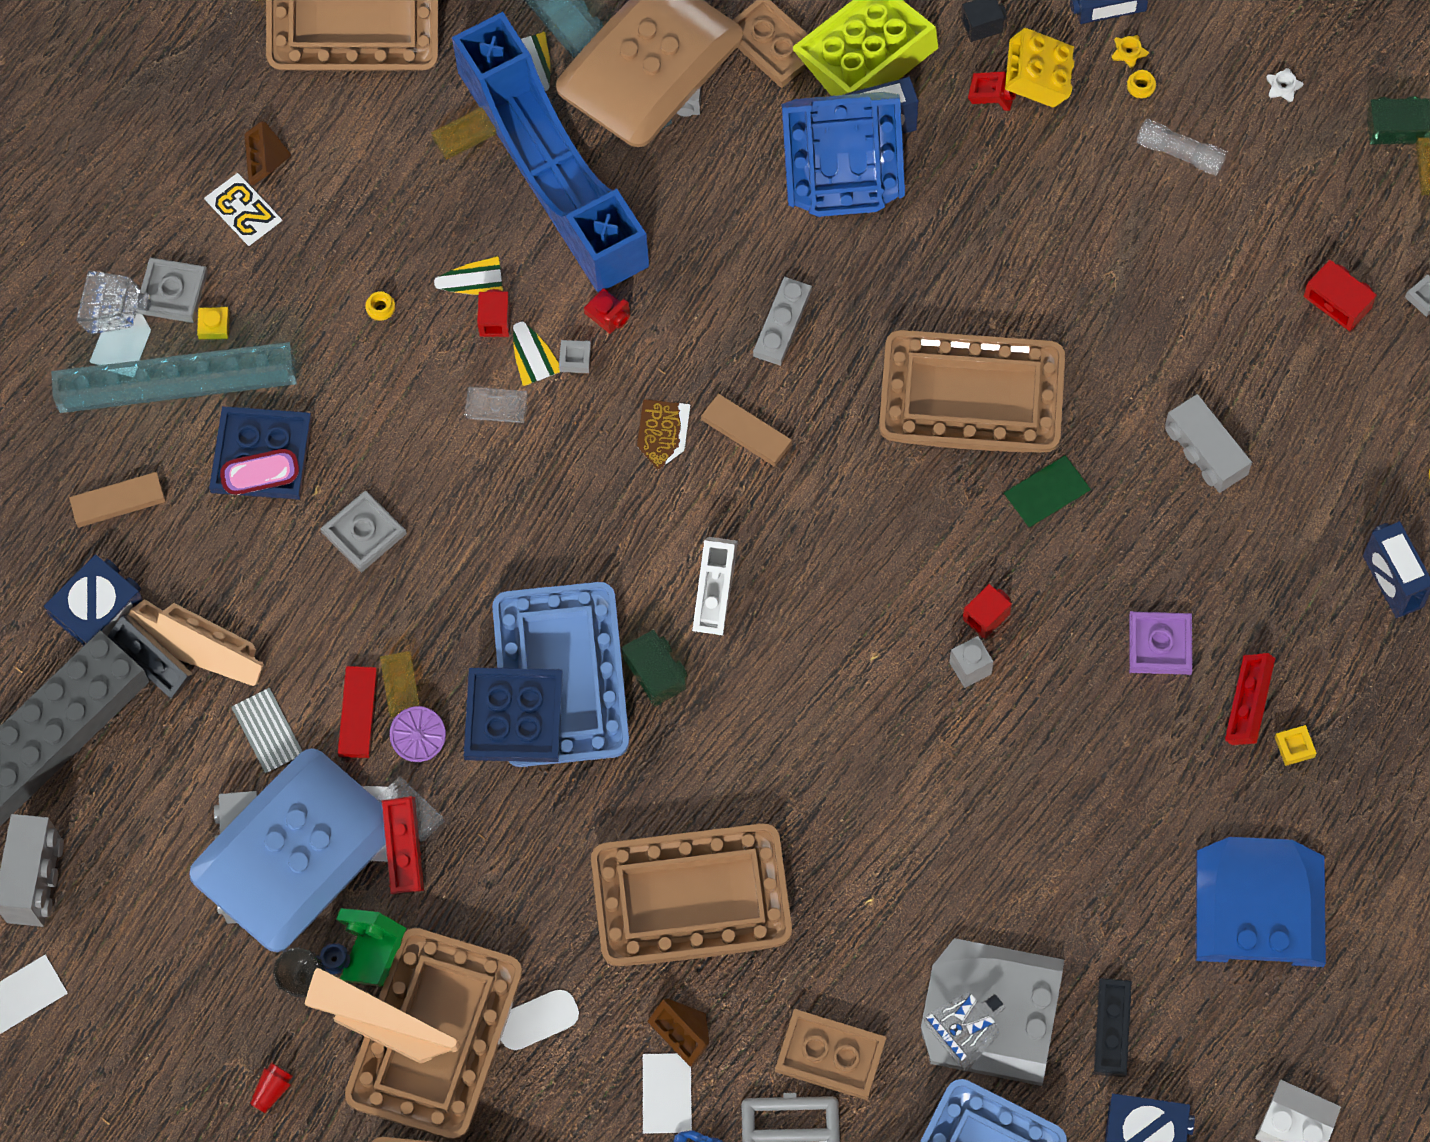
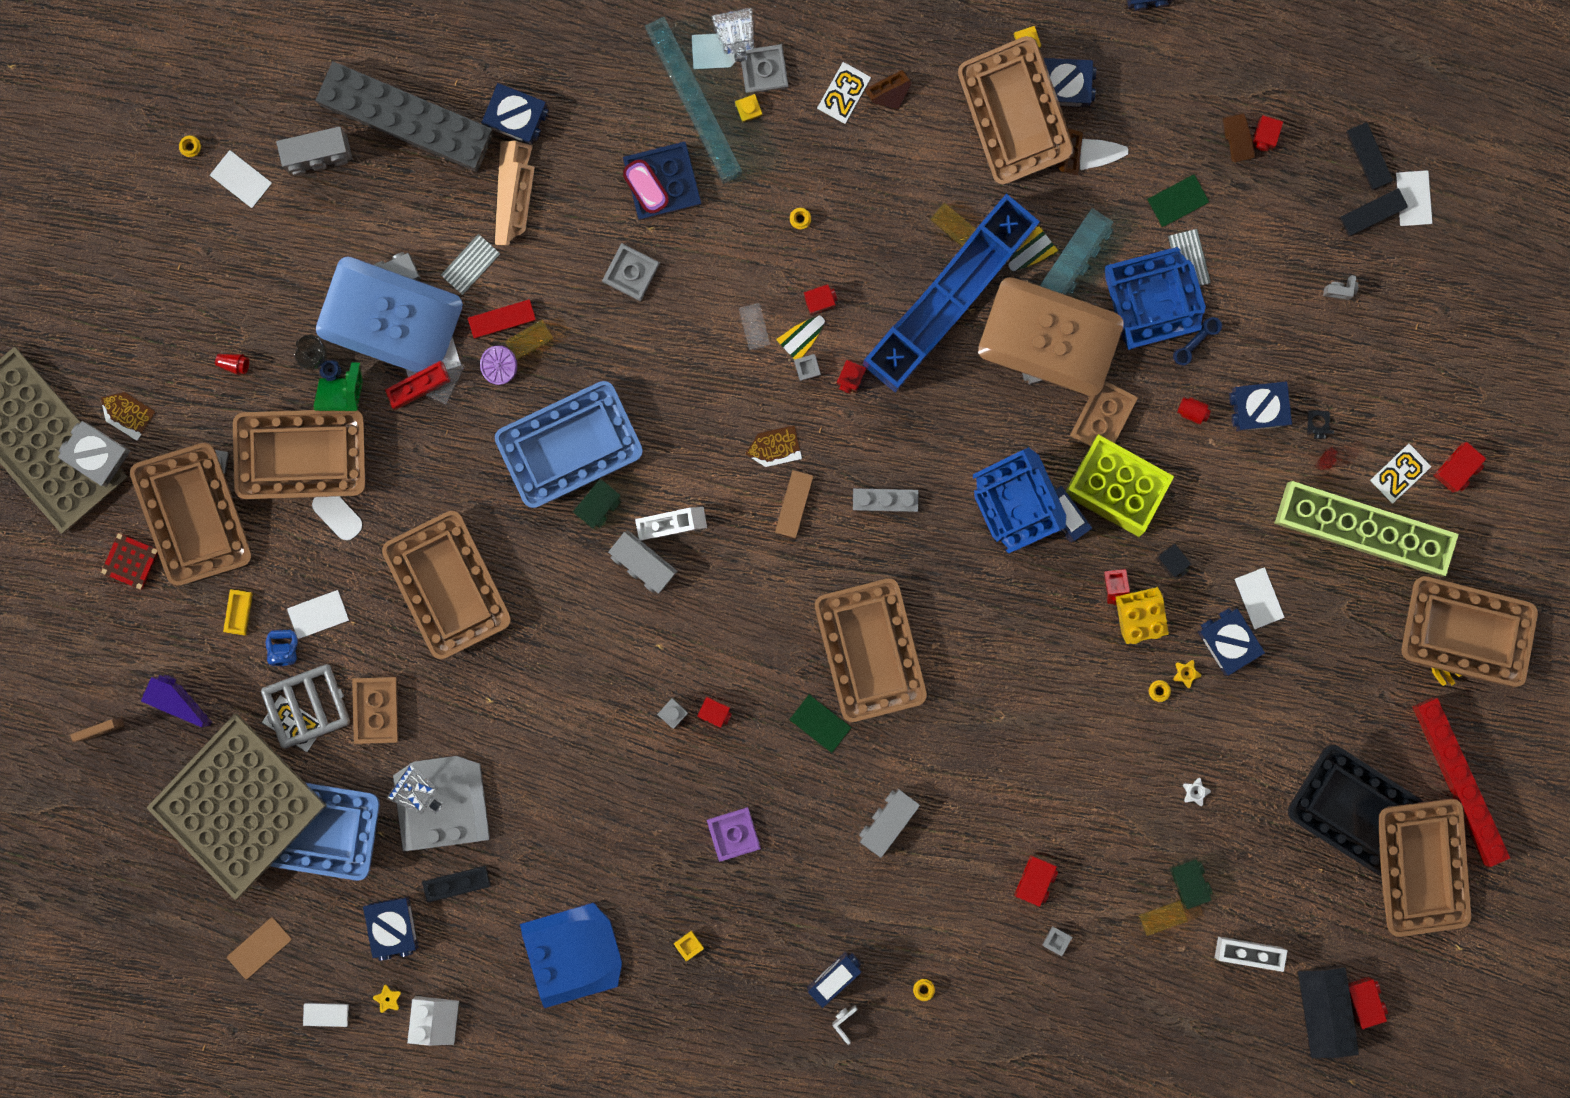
camera: 65 degrees right, 20 degrees up
(117, 499) = (596, 97): medium nougat tile -> none
(150, 655) = (490, 166): black plate -> none
(377, 1019) = (290, 416): light nougat wedge -> none
(472, 278) = (845, 274): sticker -> none
(513, 715) = (524, 425): dark blue plate -> none
(682, 1029) = (360, 610): reddish brown slope -> none
(754, 635) = (642, 562): none -> light grey brick
(1201, 155) = (1116, 737): clear axle -> none
(1250, 699) = (710, 906): red plate -> none

